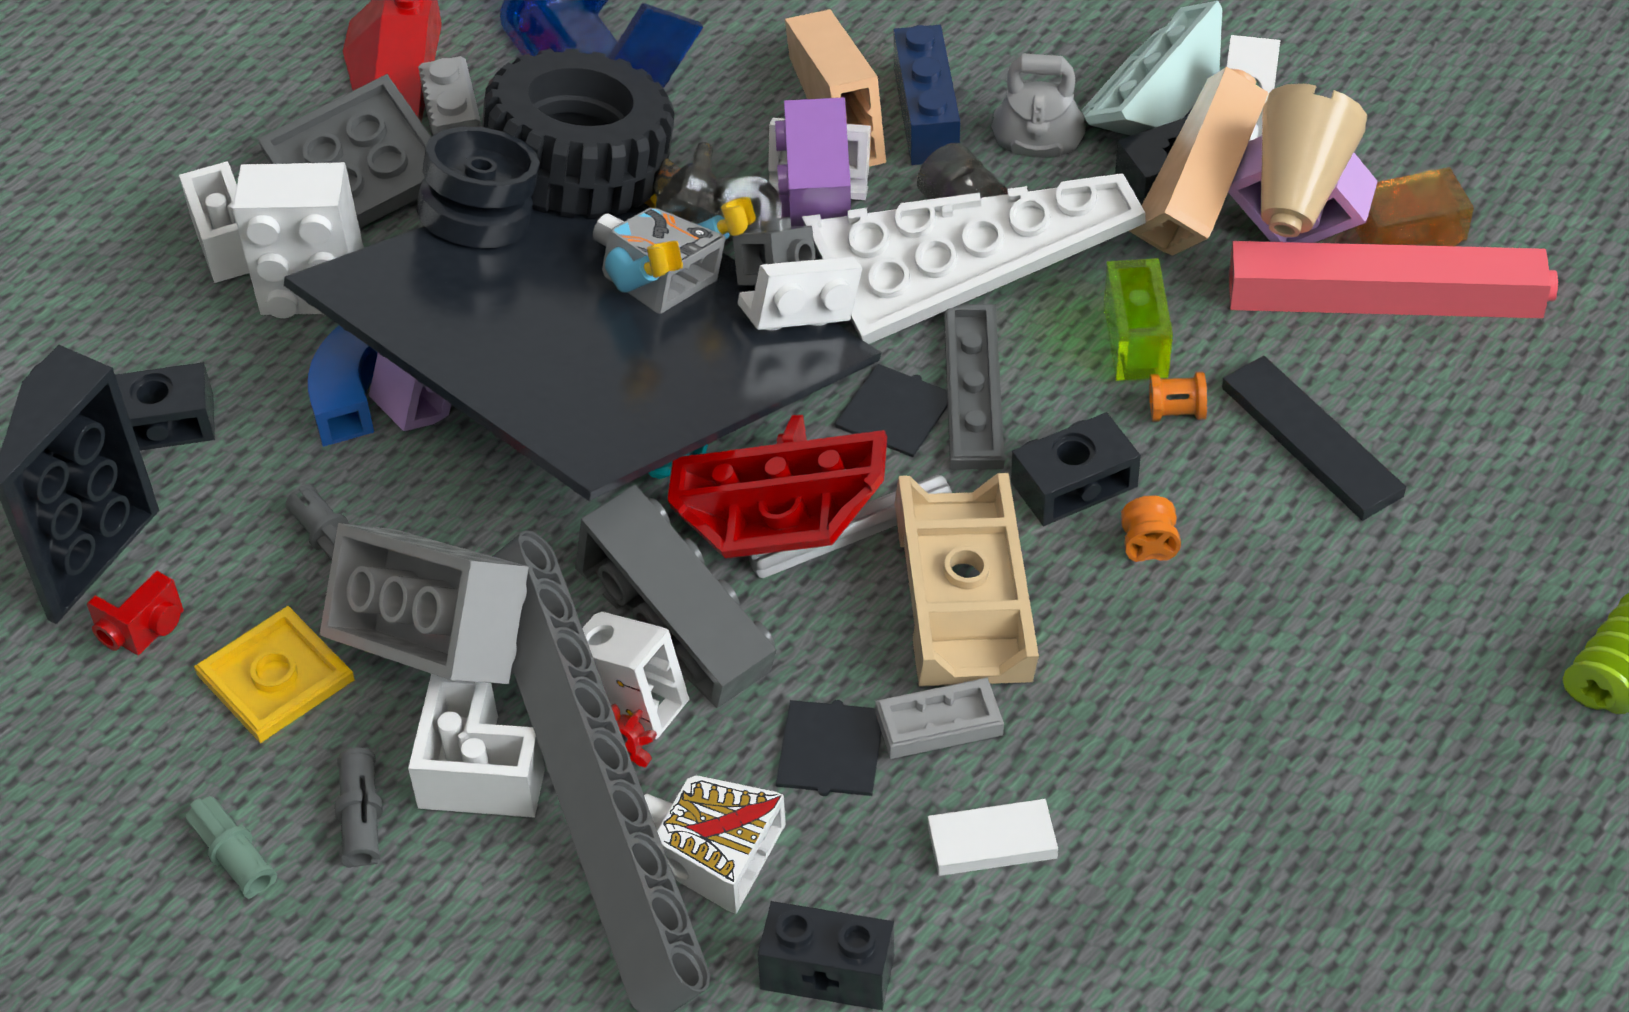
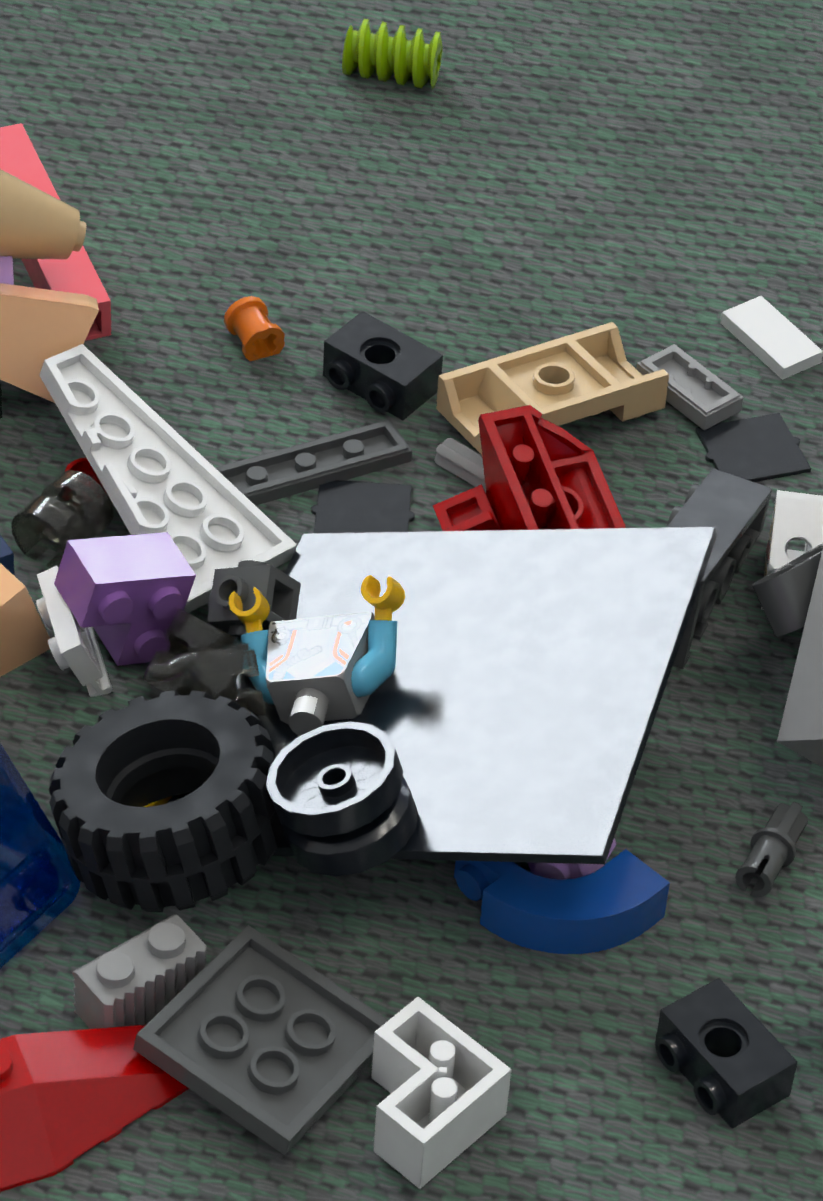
camera: 120 degrees left, 5 degrees down
(292, 222) = (471, 952): white brick -> none
(802, 293) = (311, 557): white bracket -> none
(1137, 319) = (188, 356): clear neon green brick -> none
(1150, 529) = (421, 310): orange wheel -> none
(1314, 438) = (245, 255): black tile -> none

